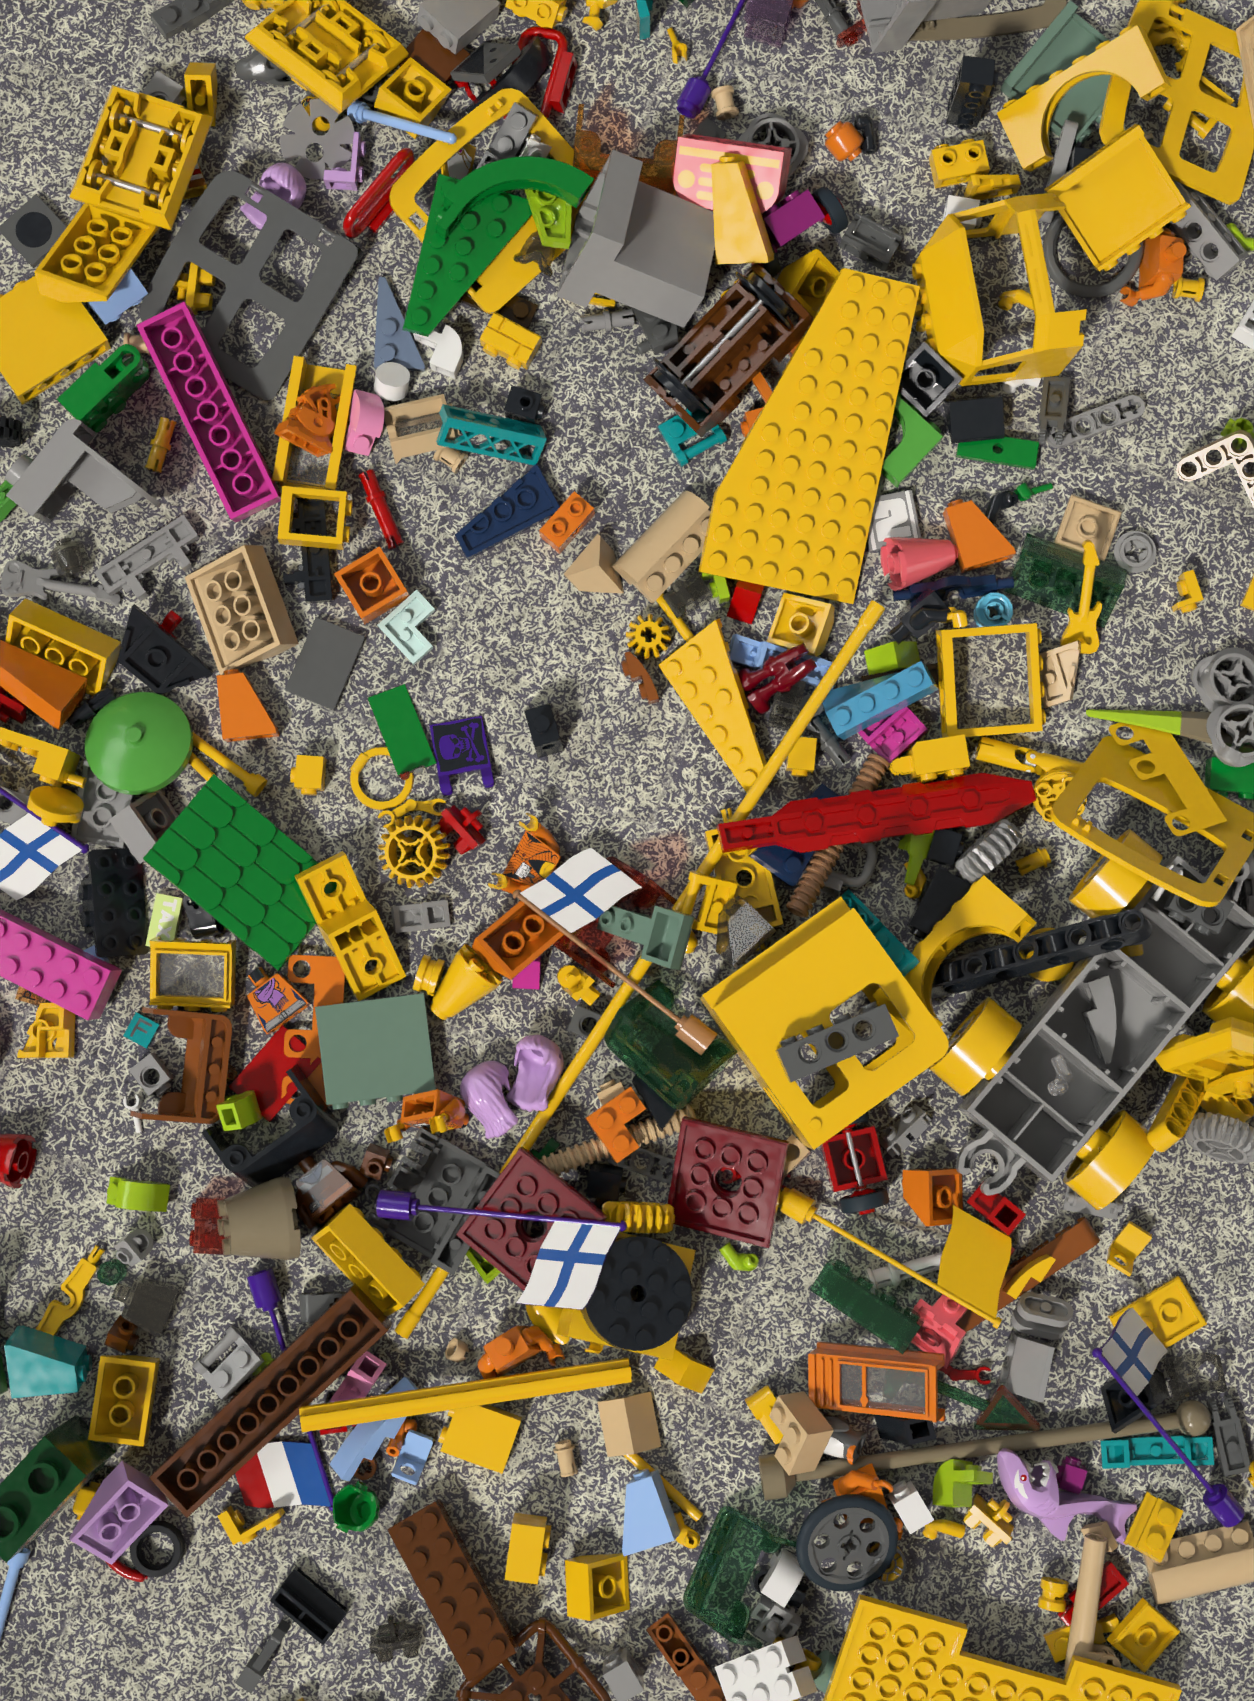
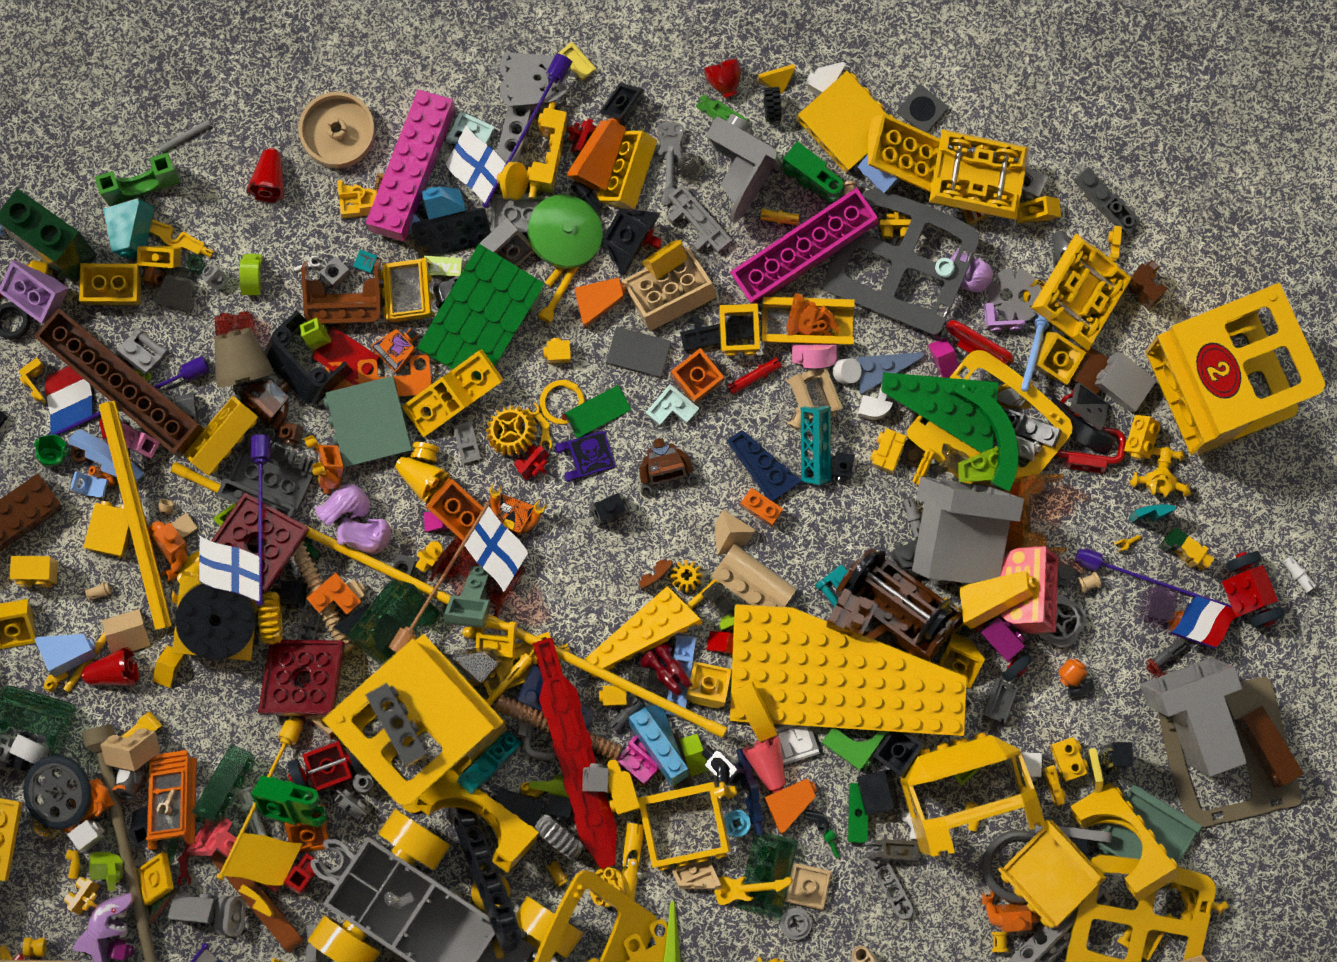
camera: 80 degrees right, 5 degrees down
(71, 908) = (443, 201): none -> dark azure slope
(93, 1324) = (159, 256): none -> yellow slope
(198, 608) = (665, 259): none -> yellow slope
(267, 223) = (945, 267): none -> light aqua tile
(390, 249) = (944, 357): none -> dark pink slope
(488, 1326) = (184, 525): none -> tan tile
(490, 645) = (664, 464): none -> reddish brown torso
(538, 296) = (924, 465): none -> yellow axle
(681, 1448) = (113, 670): none -> red cone
(739, 410) = (851, 615): none -> reddish brown hips
(739, 1261) = (247, 695): lime arm -> none
(747, 870) = (517, 670): none -> yellow pin
(848, 563) = (755, 711): none -> yellow slope
(886, 1388) = (161, 806): none -> tan hand
(888, 1118) = (369, 782): none -> light grey brick
(901, 1217) = (288, 802): none -> green brick
(918, 790) = (595, 778): none -> light grey brick
(979, 128) = (1095, 770): none -> light yellow tile
(980, 1414) = (155, 878): none -> yellow tile
(1101, 1017) = (447, 932): light grey slope -> none

